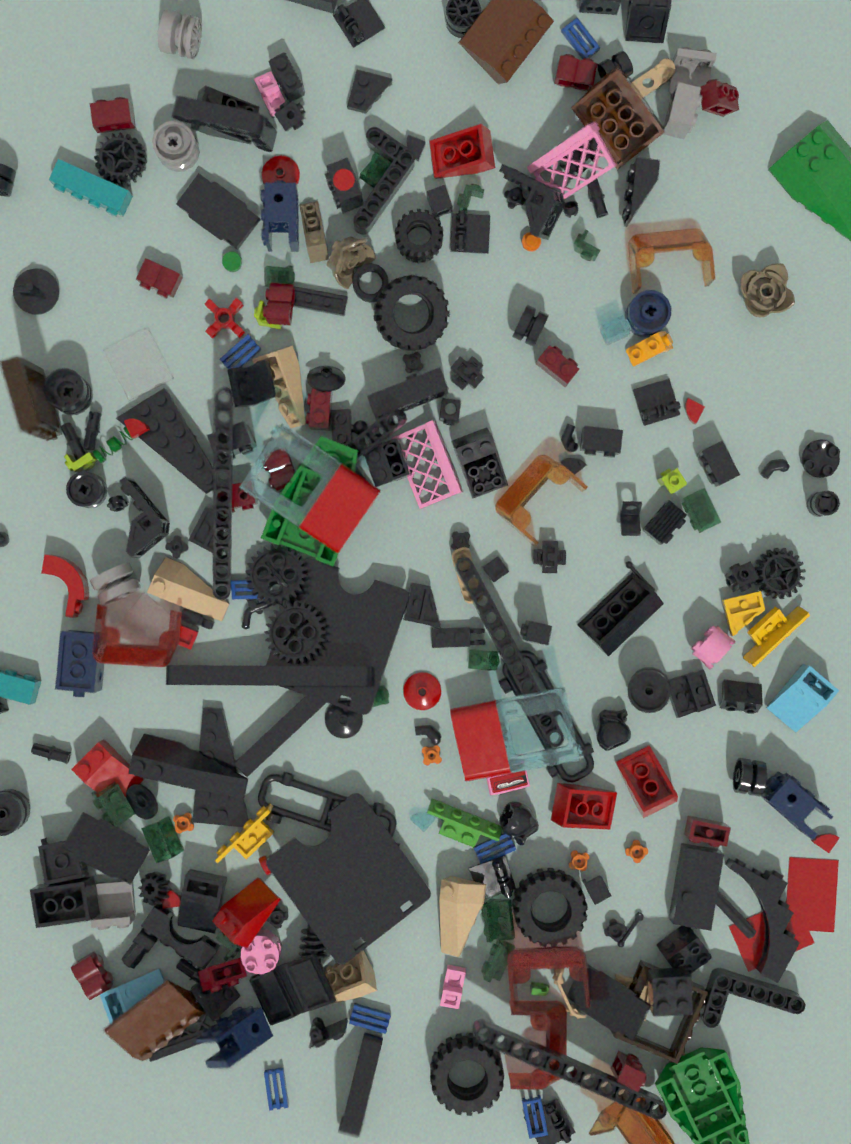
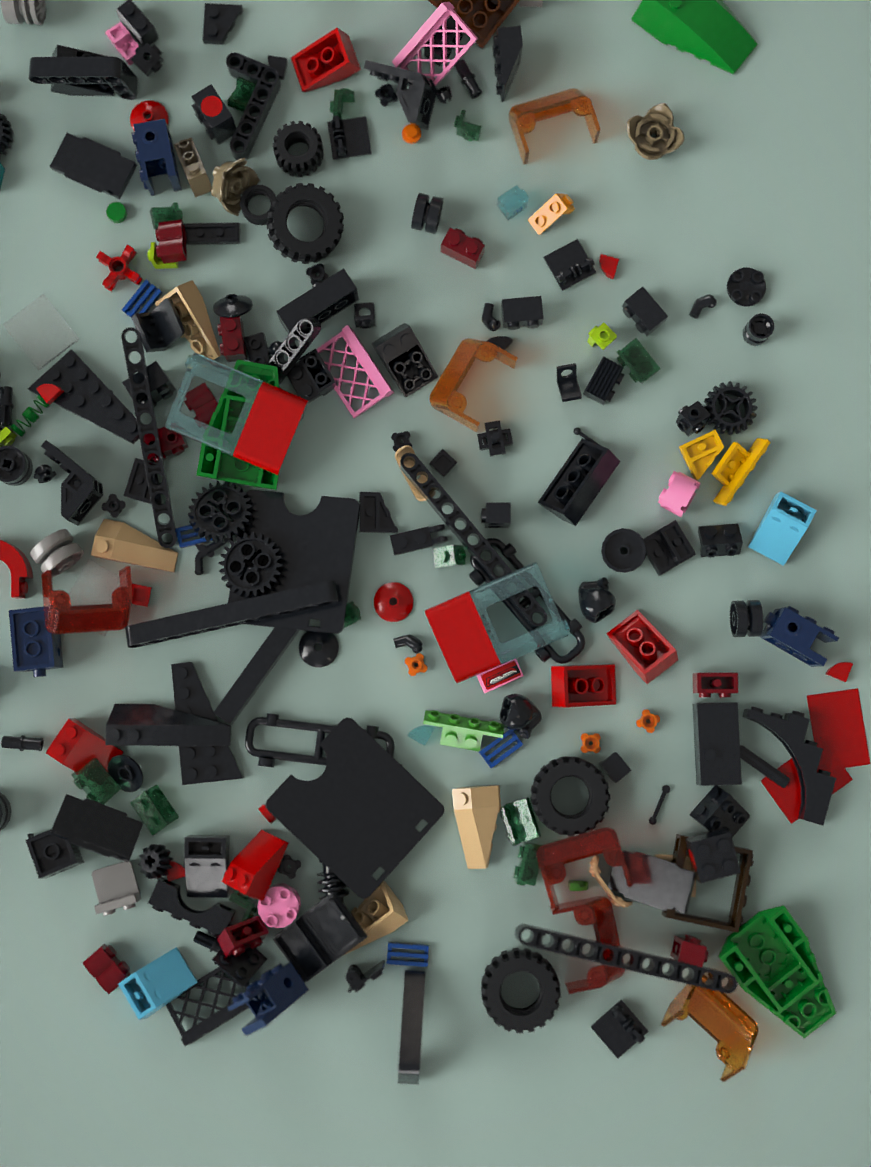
camera: 10 degrees left, 5 degrees down
(64, 902) = (63, 894): black brick -> none
(141, 945) = (153, 924): black piece -> none
(155, 1020) = (180, 997): reddish brown slope -> none
(158, 278) = (46, 242): dark red brick -> none
(175, 146) = (39, 110): light grey wheel -> none
(188, 823) = (167, 786): orange plate -> none
(196, 619) = (146, 574): black bar -> none
(250, 838) = (246, 787): yellow bracket -> none
(278, 1104) = (329, 1068): blue tile -> none
(439, 201) = (312, 111): black panel -> none
(453, 986) = (487, 902): bright pink slope -> none
(467, 372) = (372, 272): black piece -> none
(495, 875) = (508, 775): black hinge -> none
(531, 1101) = (595, 1005): blue tile -> none
(616, 936) = (640, 802): black plate -> none
(656, 305) = (542, 177): dark blue wheel -> none
(746, 991) = (793, 842): black beam -> none

